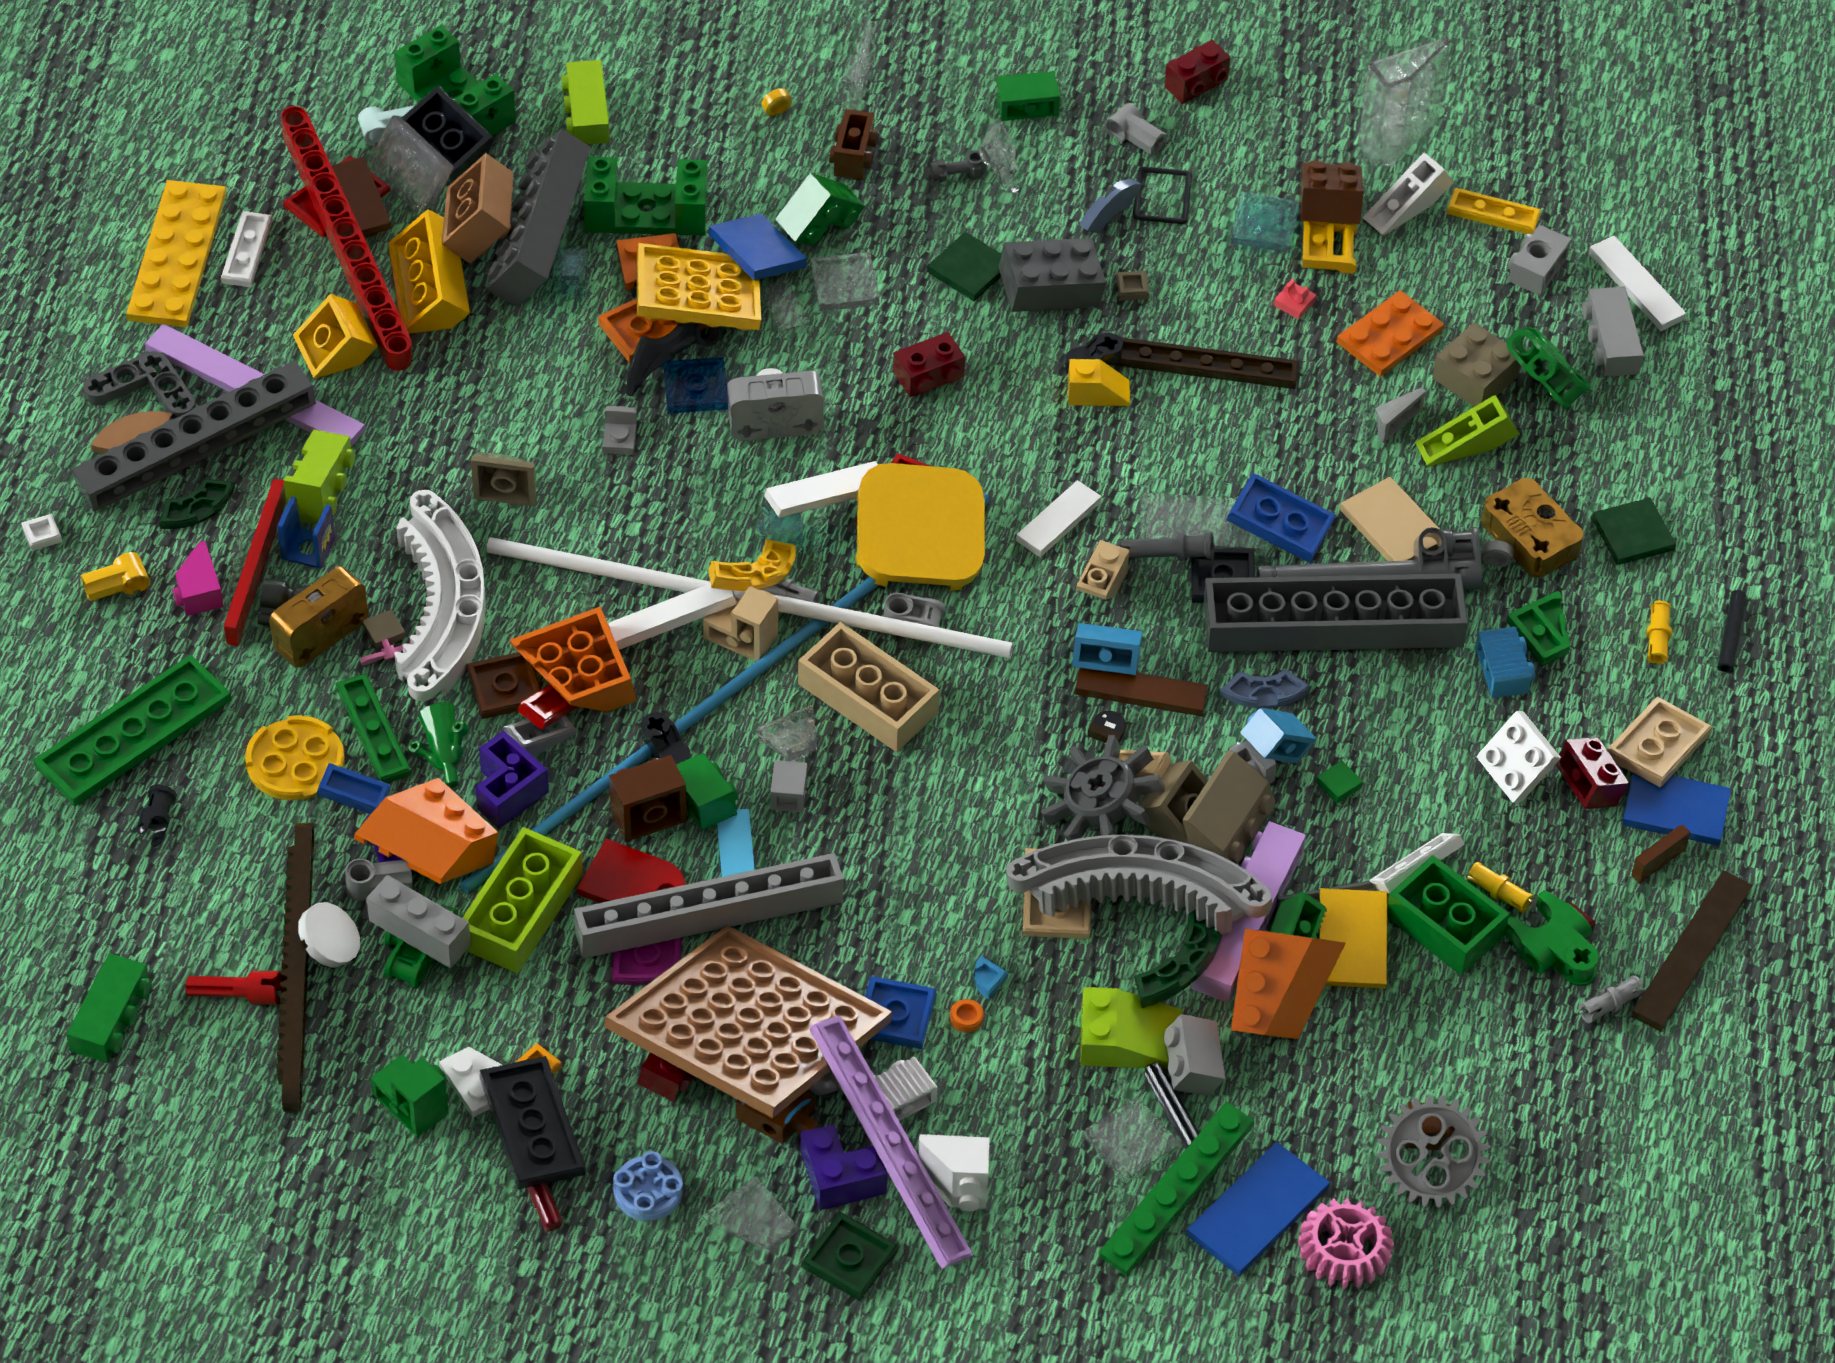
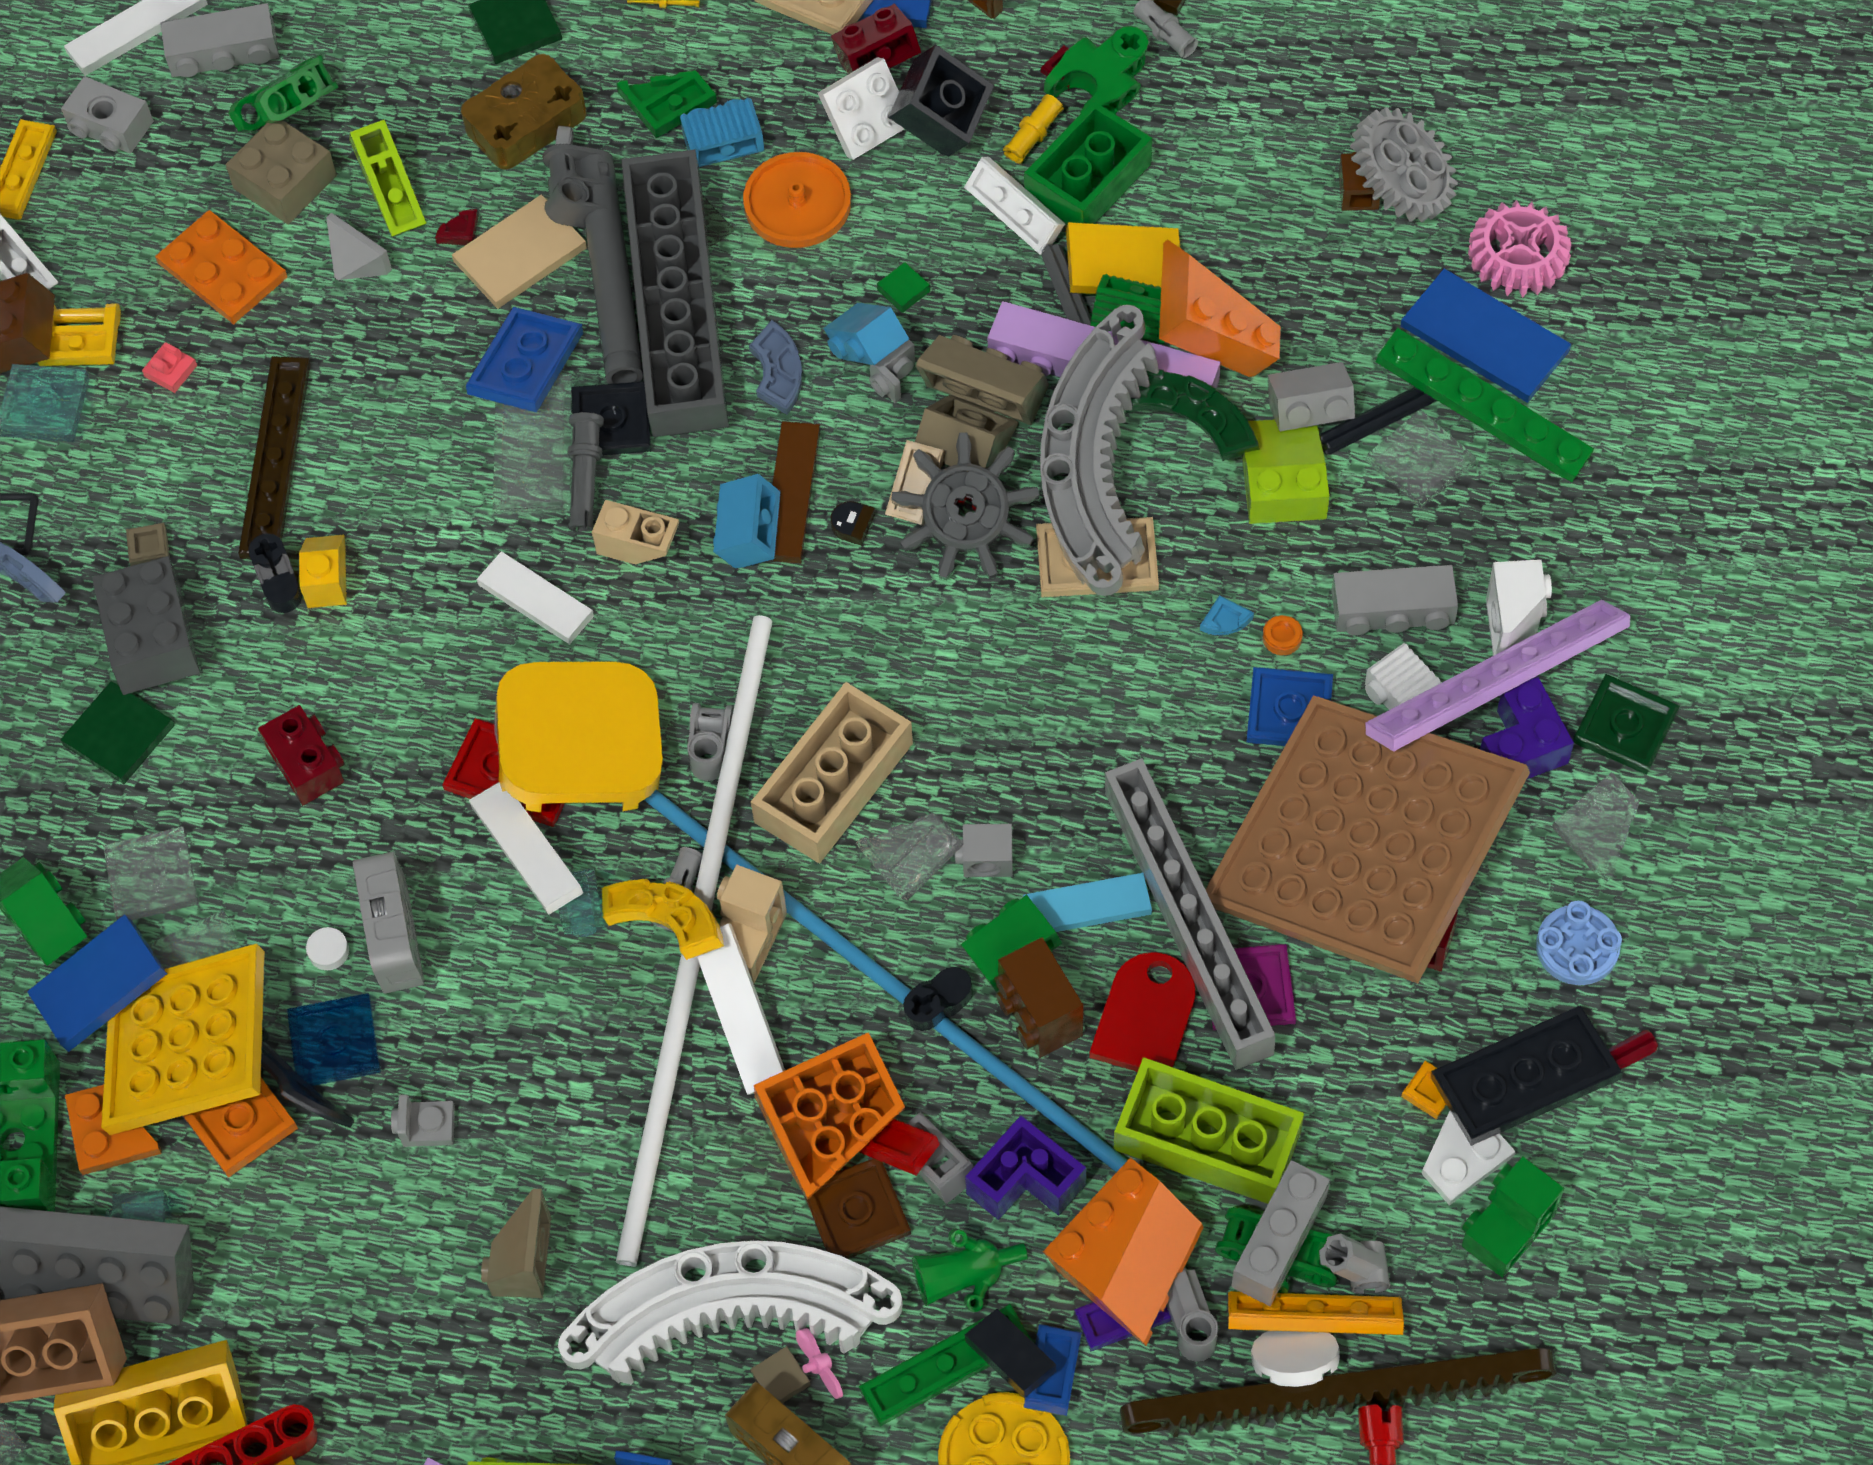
camera: 90 degrees left, 10 degrees up
(360, 967) = (1317, 1313): none -> light orange tile
(366, 756) = (1010, 1353): none -> black tile
(393, 989) = (1359, 1262): none -> light grey piece
(986, 1091) = (1394, 599): none -> light grey brick
(1419, 486) = (459, 230): none -> dark red tile
(1436, 714) = (797, 199): none -> orange piece
(1519, 808) = (941, 101): none -> black brick

